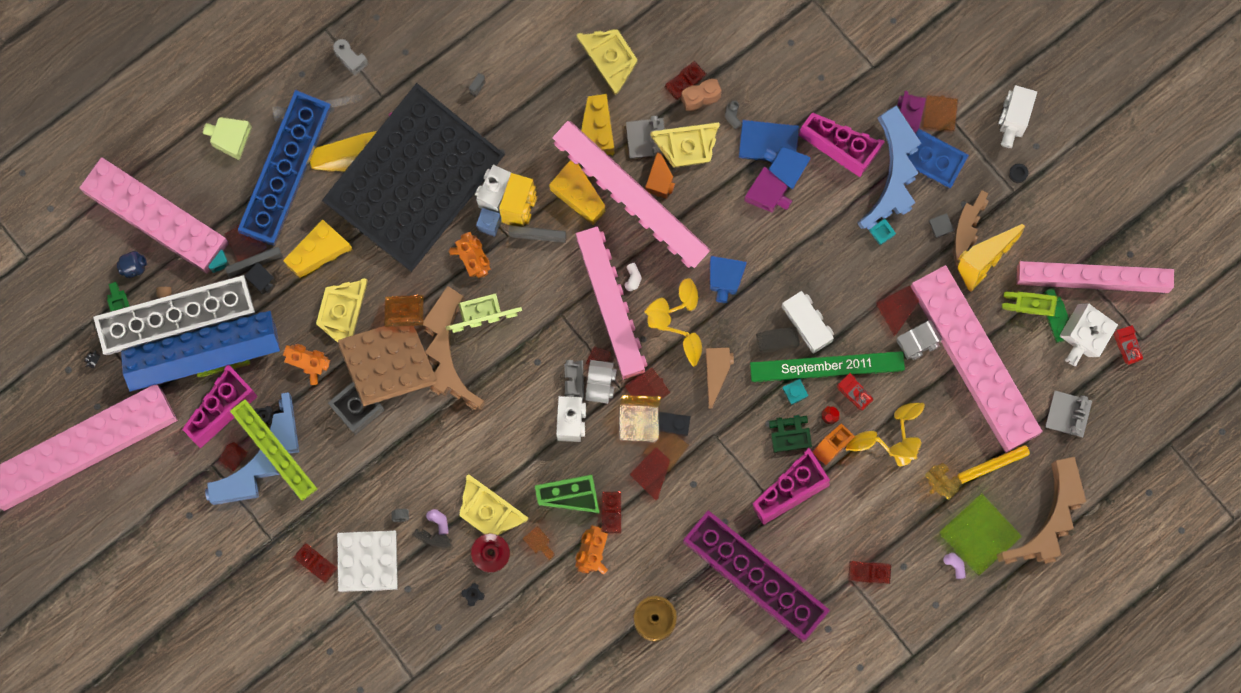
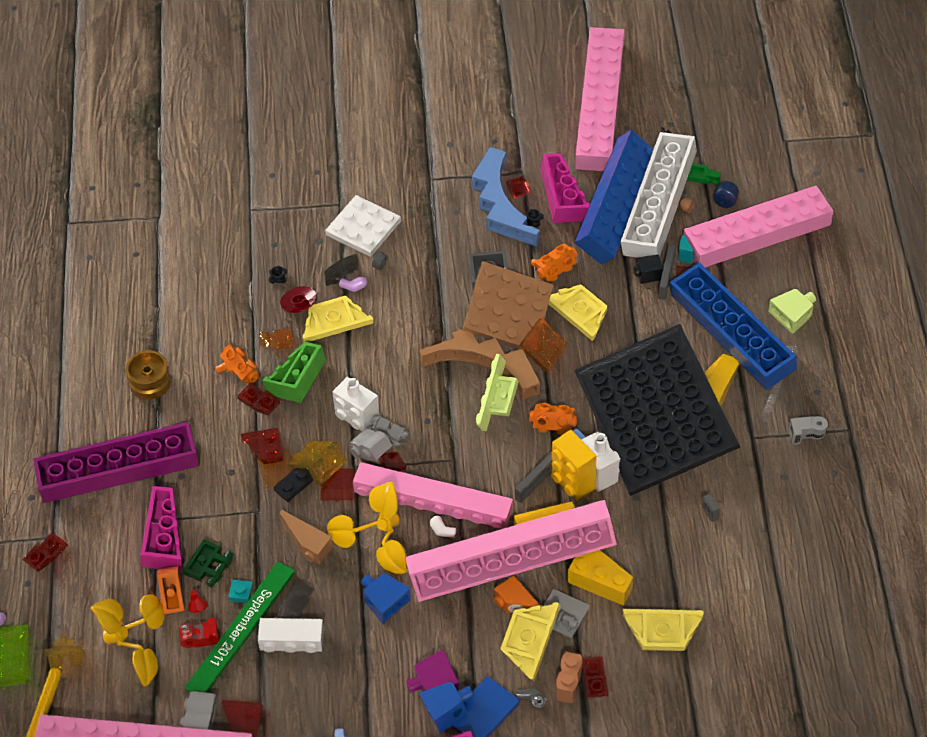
camera: 125 degrees right, 25 degrees down
(273, 450) = (496, 198): lime plate -> none
(315, 563) = (393, 193): clear red slope -> none
(316, 249) = (645, 314): yellow wedge -> none

